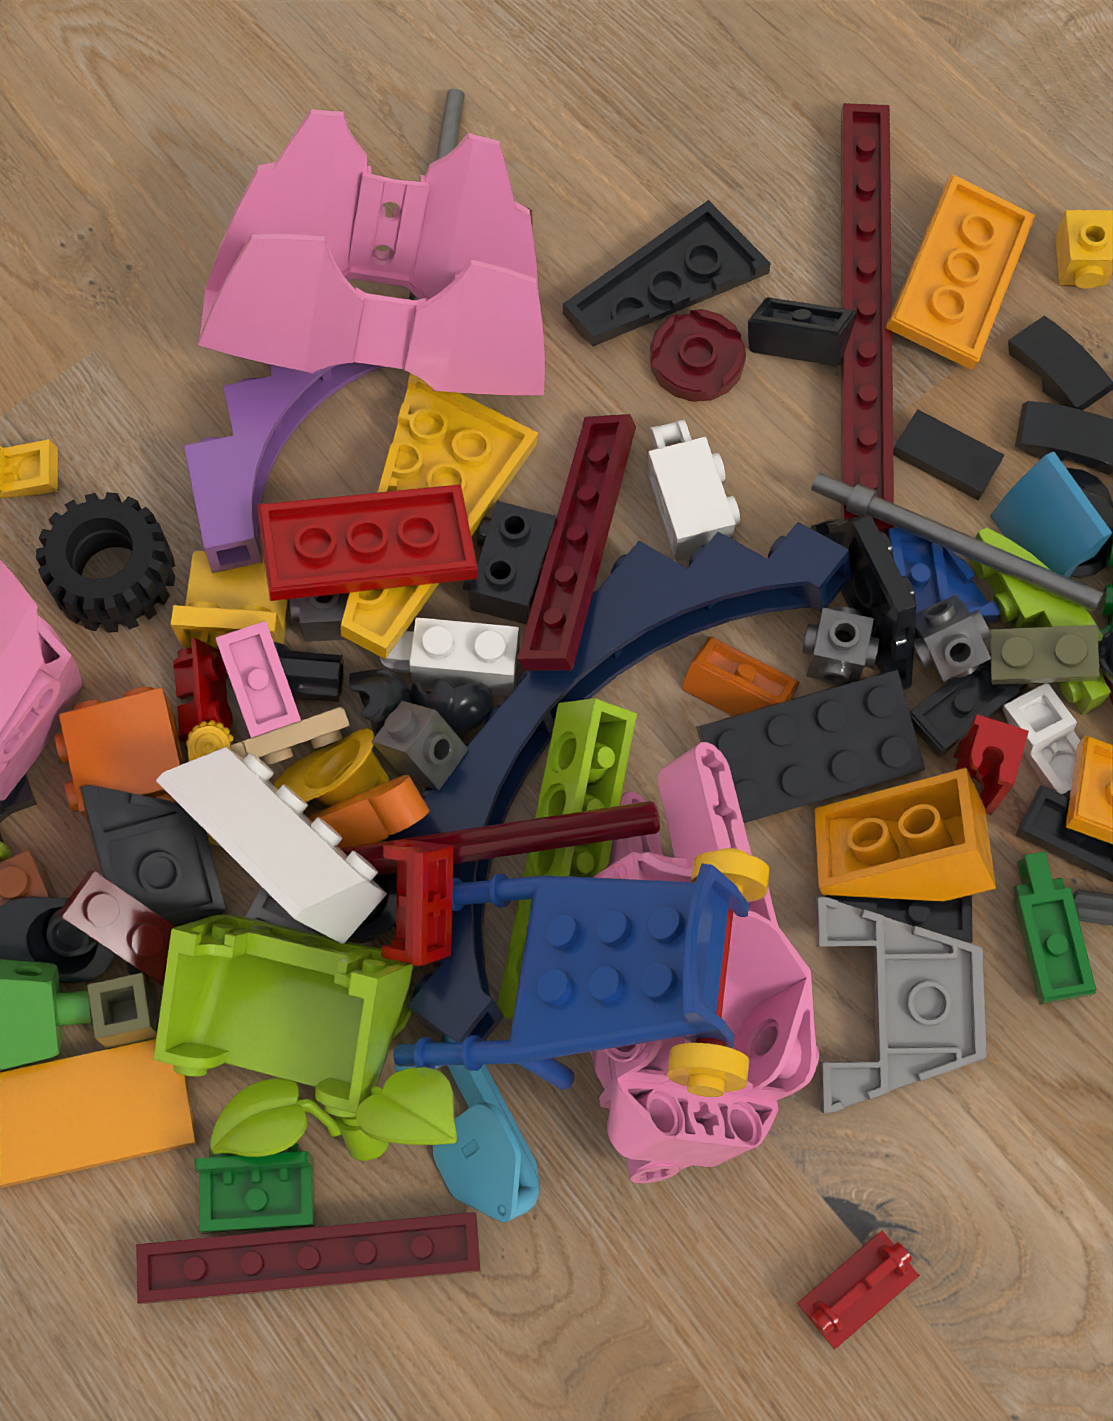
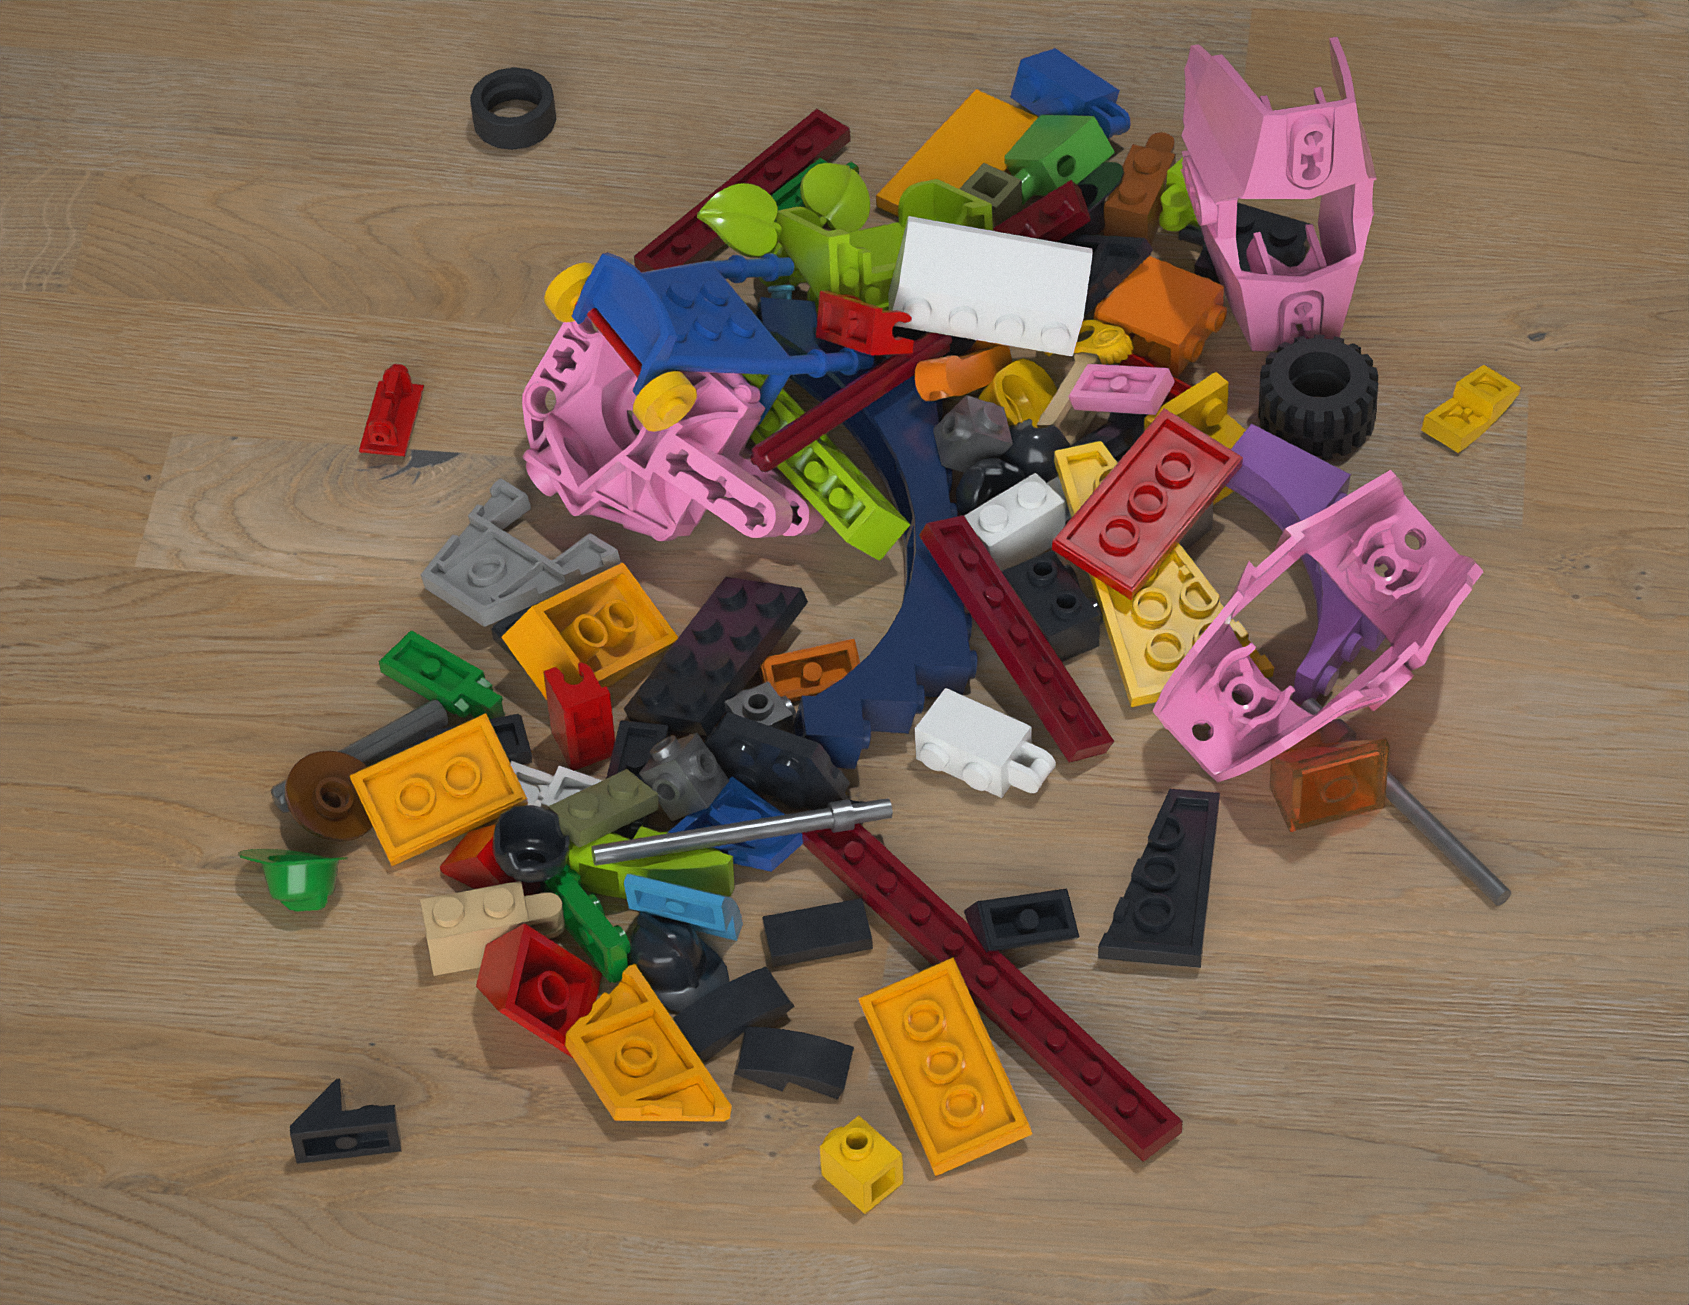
camera: 140 degrees right, 20 degrees down
(711, 356) = (1085, 857): dark red tile -> none

